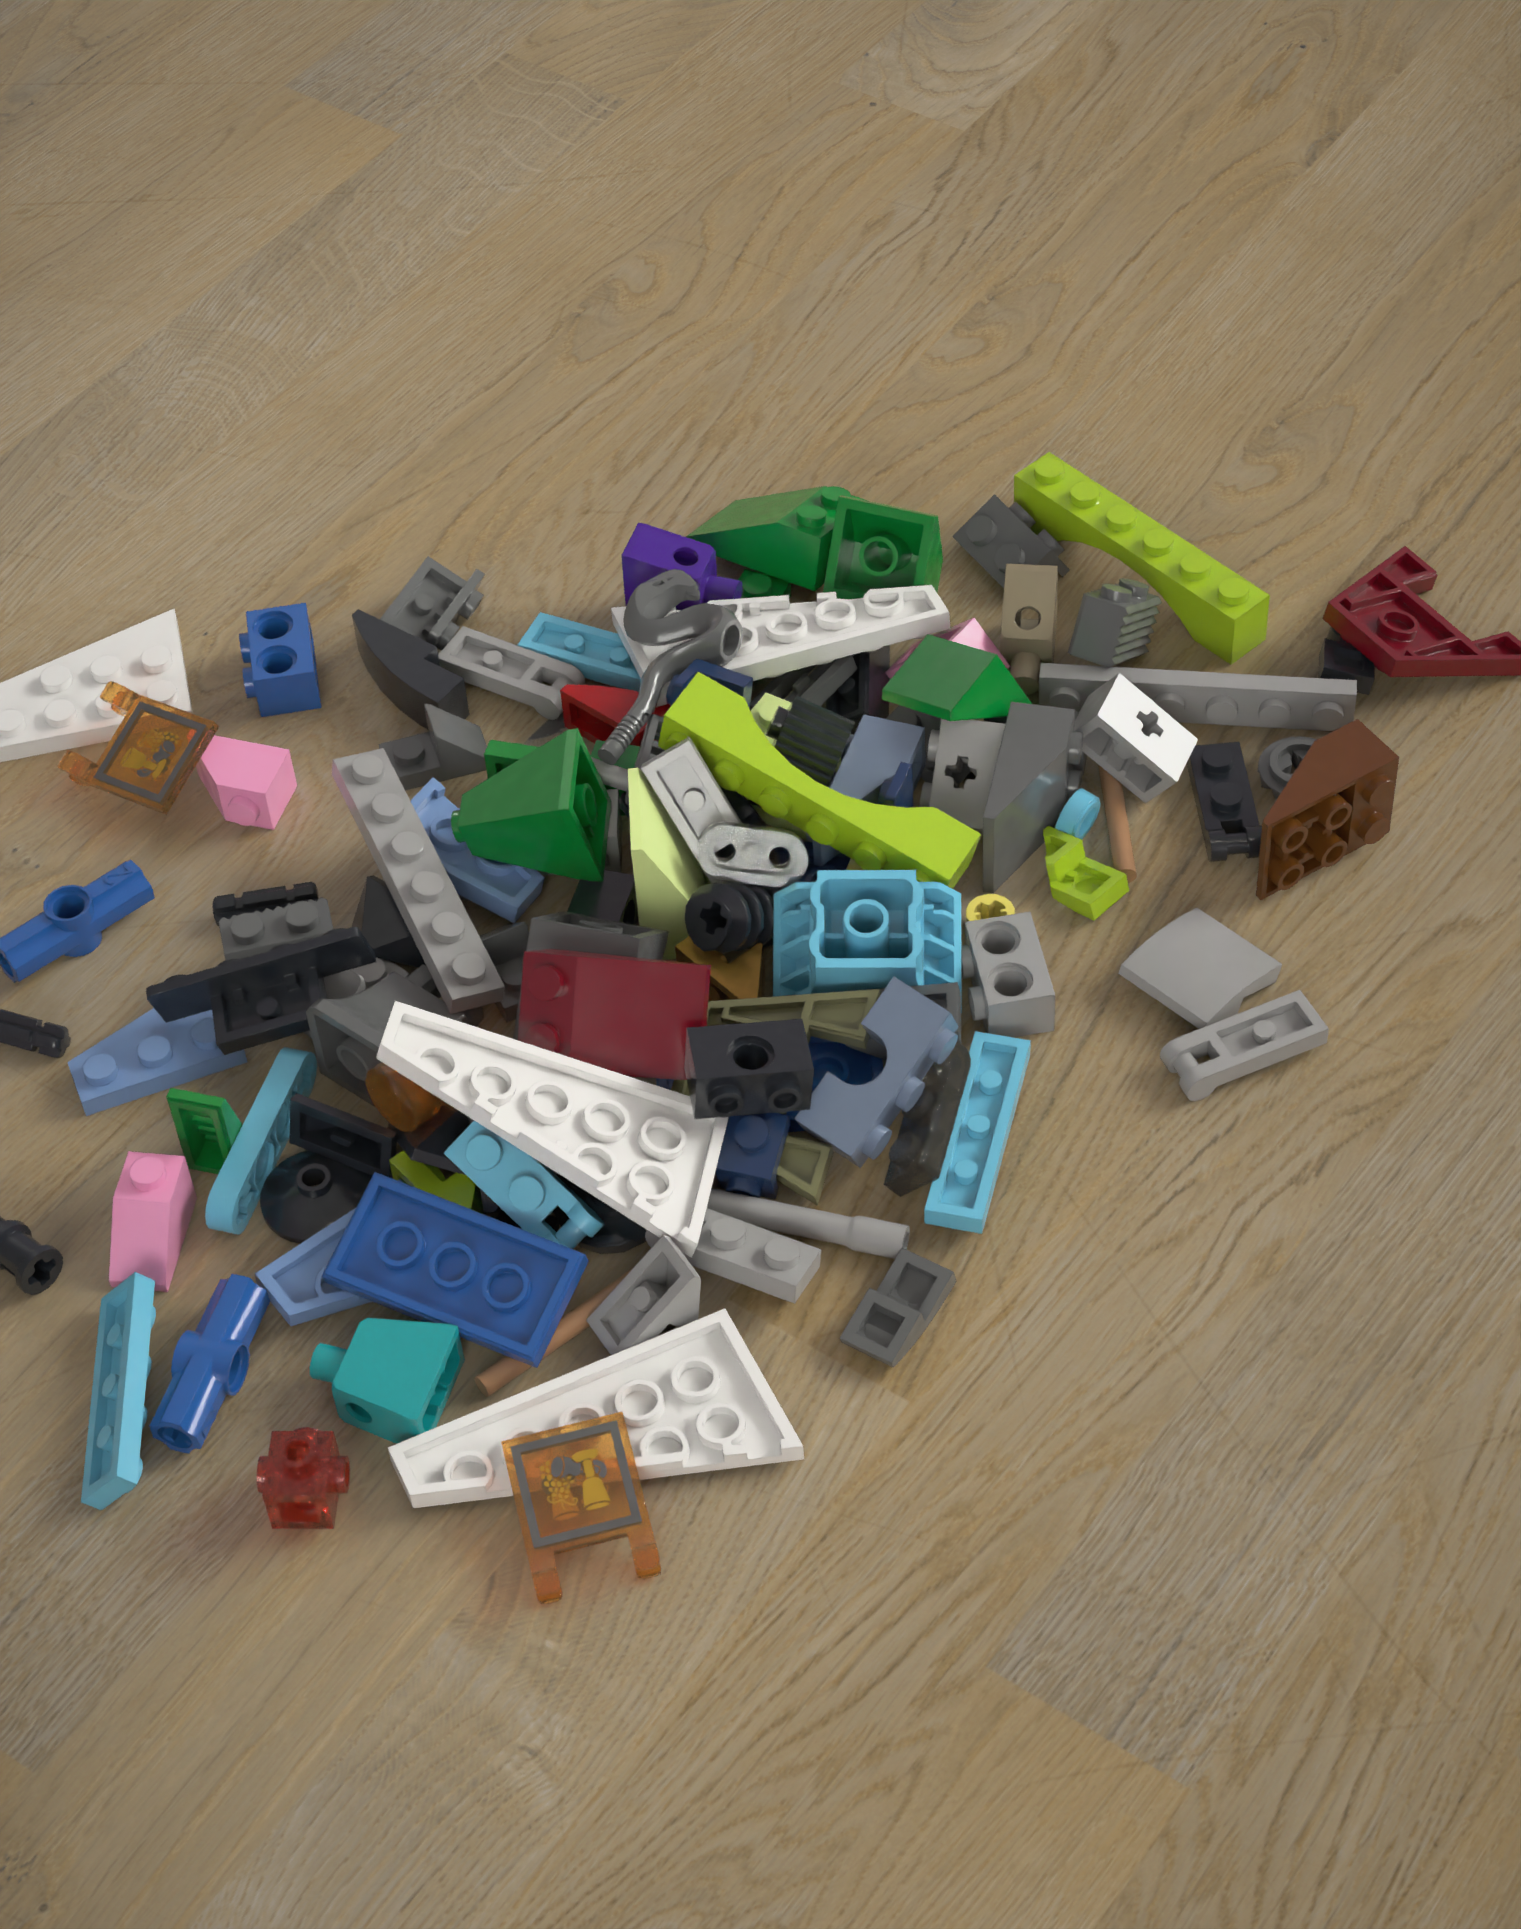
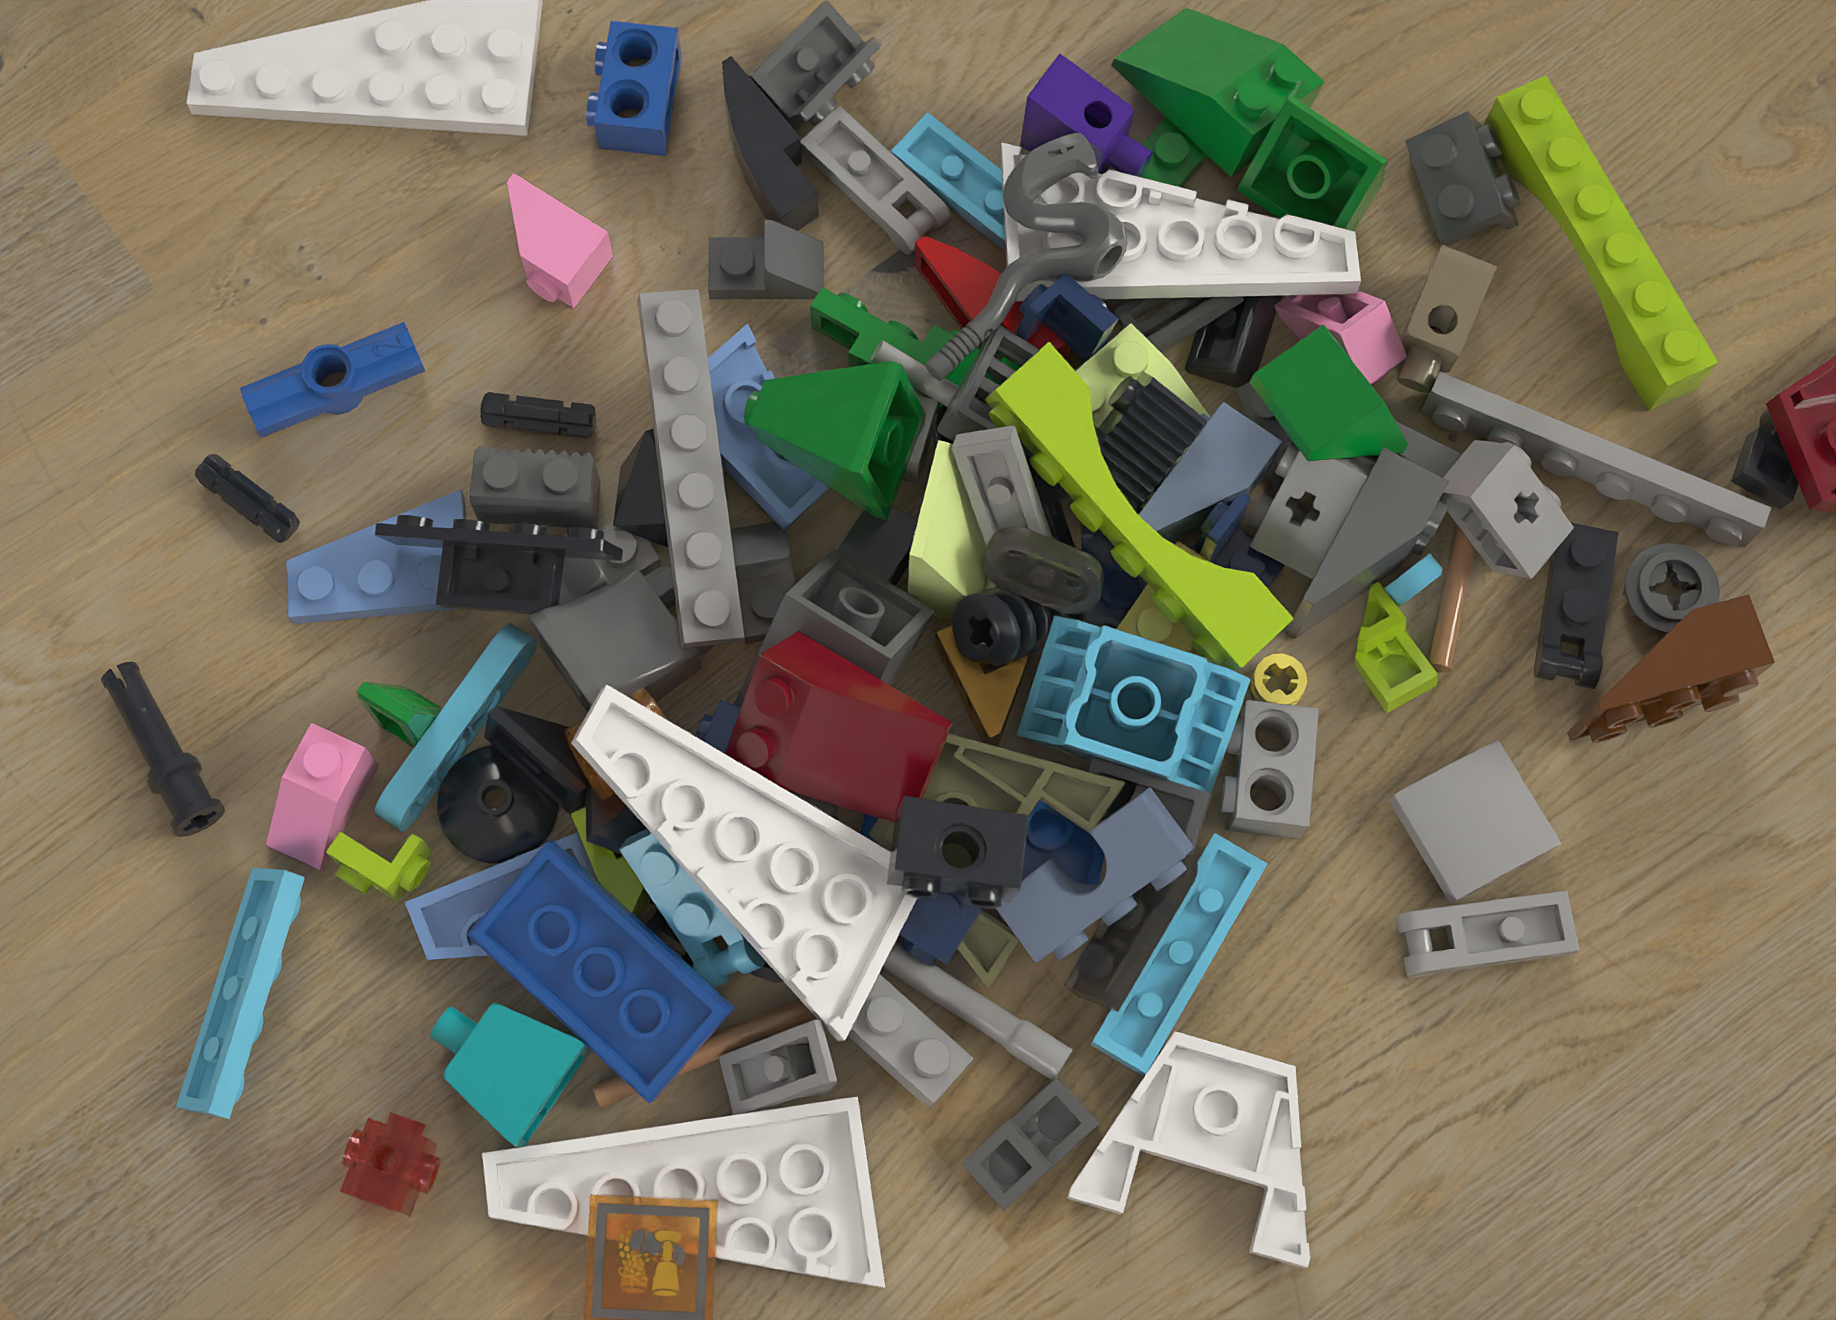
camera: 10 degrees right, 25 degrees up
(147, 754) = (461, 183): clear orange flag -> none
(206, 1259) = (365, 869): none -> lime bracket
(210, 1364) = (337, 988): blue piece -> none
(1060, 1238) = (1217, 1115): none -> white wing
(1114, 623) = (1536, 345): dark grey brick -> none

